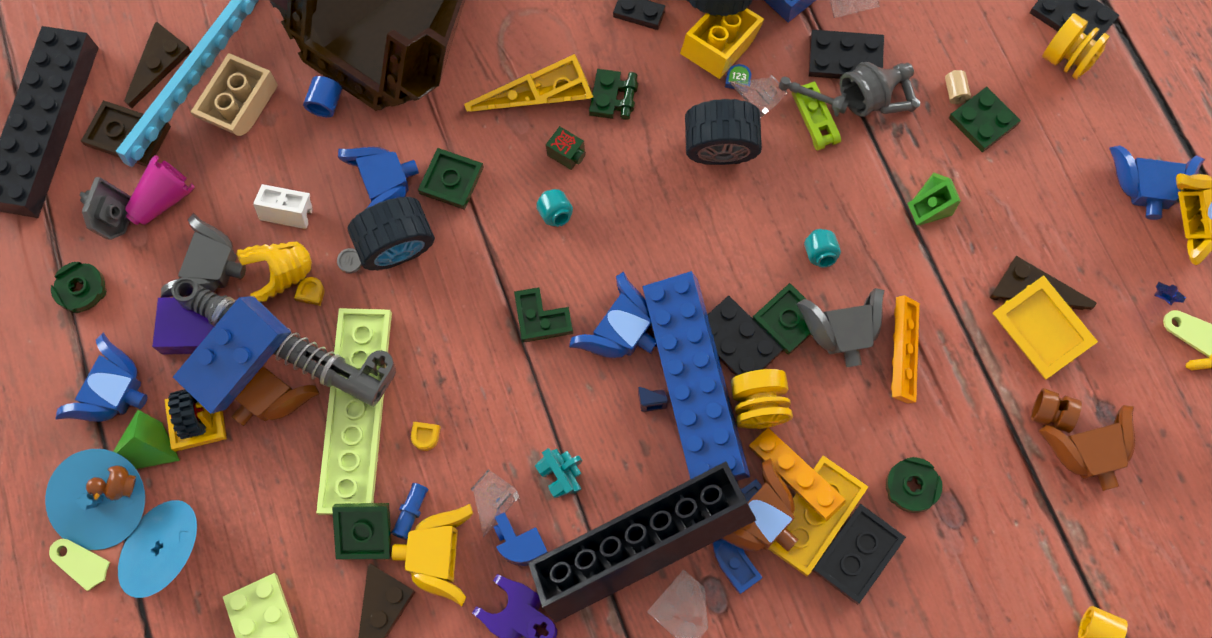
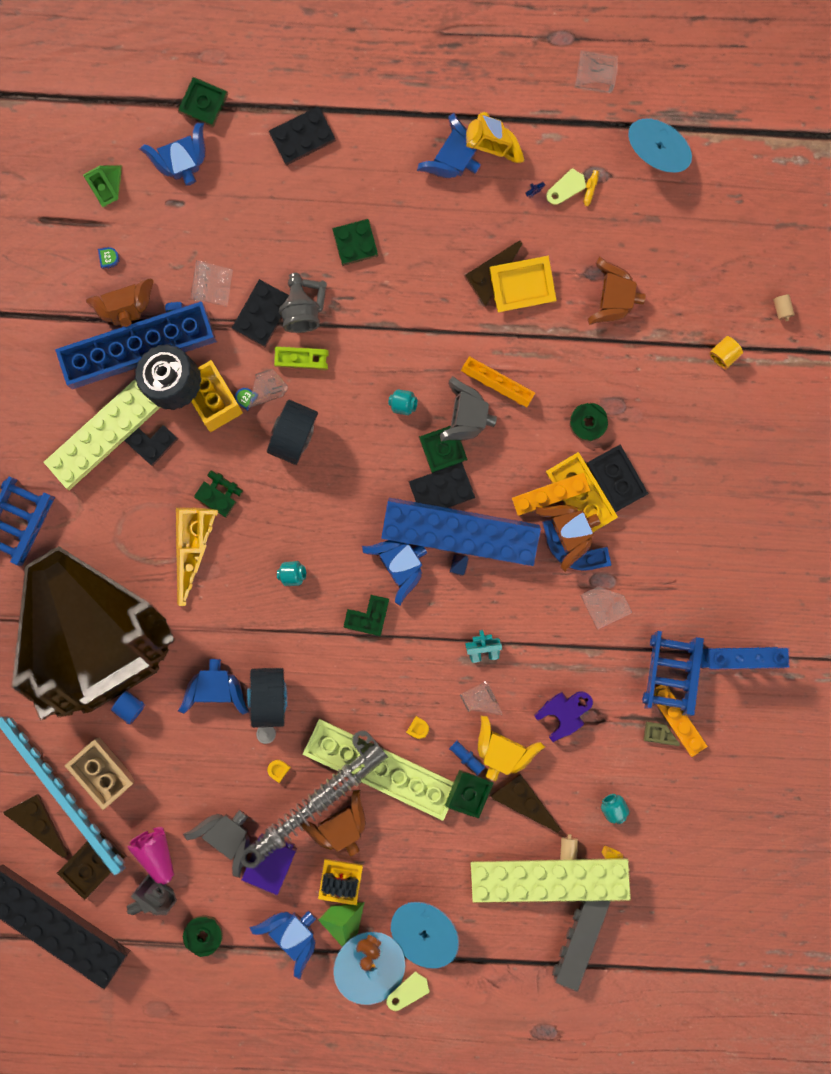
camera: 75 degrees left, 15 degrees up
(231, 354) = (316, 839): blue brick -> none
(283, 206) = (204, 766): white hinge -> none
(286, 263) = (254, 780): yellow hair -> none
(450, 178) = (235, 638): dark green plate -> none
(518, 549) = (524, 693): blue brick -> none
(566, 148) = (249, 546): dark green brick -> none
(640, 542) = (557, 615): black brick -> none
(761, 399) = (494, 494): yellow wheel -> none
(838, 104) = (301, 338): dark grey piece -> none
(934, 200) = (400, 309): bright green slope -> none
(957, 87) = (323, 248): tan piece -> none
(1060, 411) = (583, 304): dark orange wheel -> none
(1075, 46) = (333, 152): yellow wheel -> none

